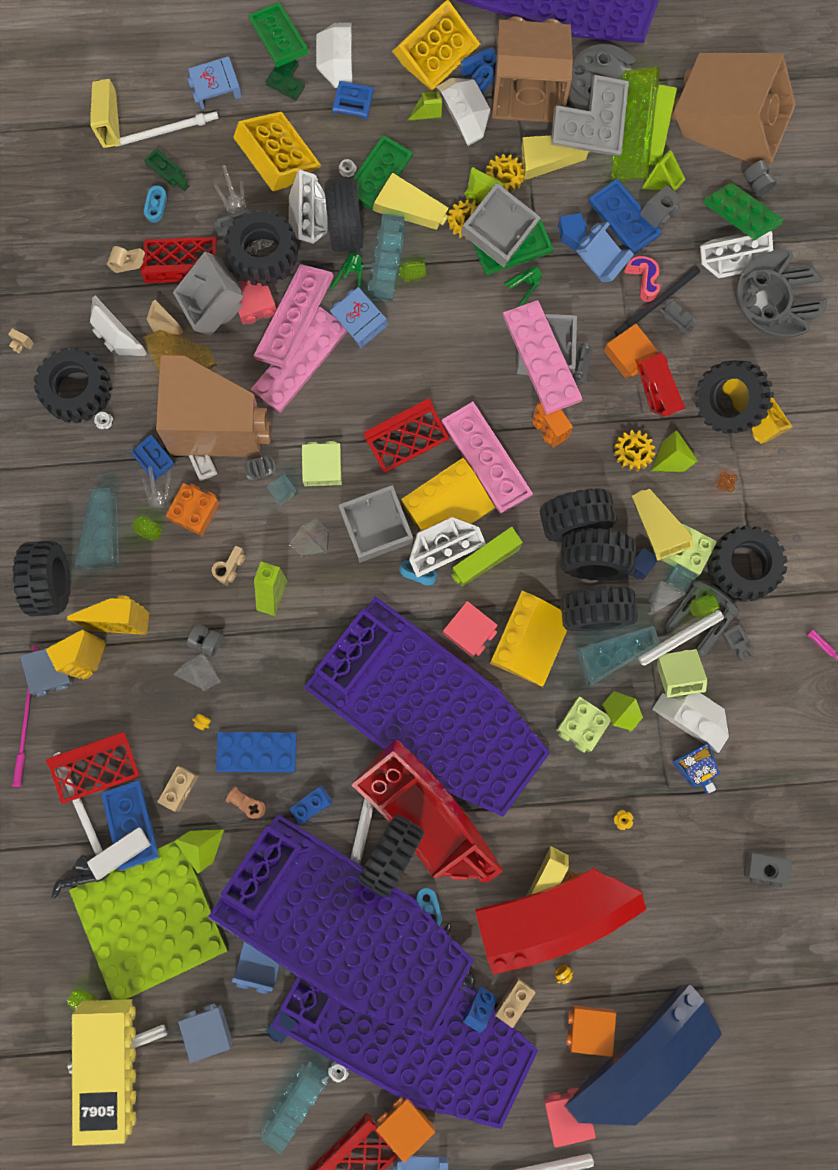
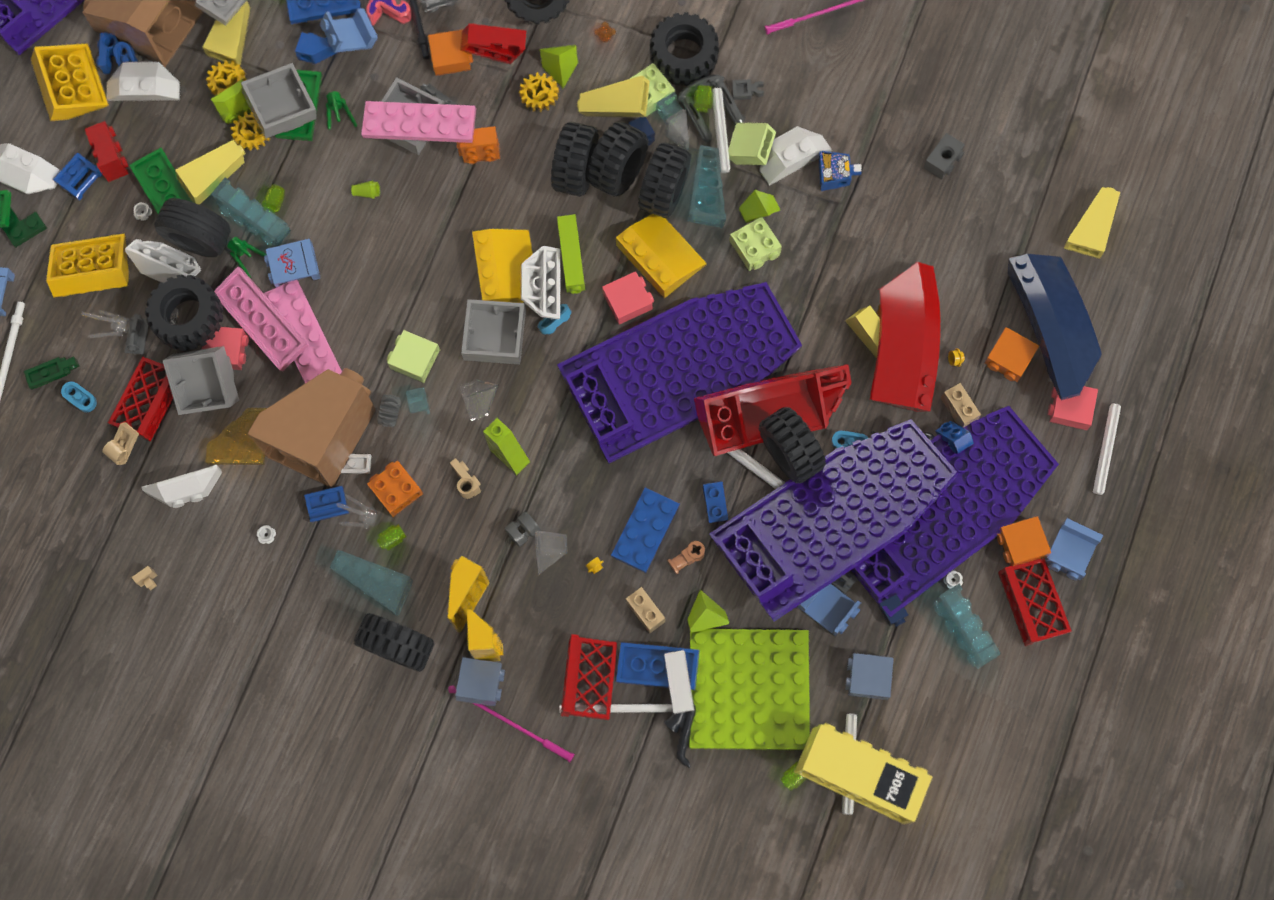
camera: 60 degrees left, 5 degrees down
(56, 369) = (201, 527): black tyre -> none
(161, 320) = (199, 437): tan slope -> none
(386, 110) = (107, 151): none -> red wedge
(398, 421) = (408, 274): red fence -> none
(427, 107) = (121, 114): lime slope -> none
(462, 347) = (367, 189): none -> lime cone
(487, 458) = (467, 215): bright pink plate -> none
(618, 820) = (851, 255): yellow plate -> none
(772, 1057) = (1094, 227): none -> light yellow slope

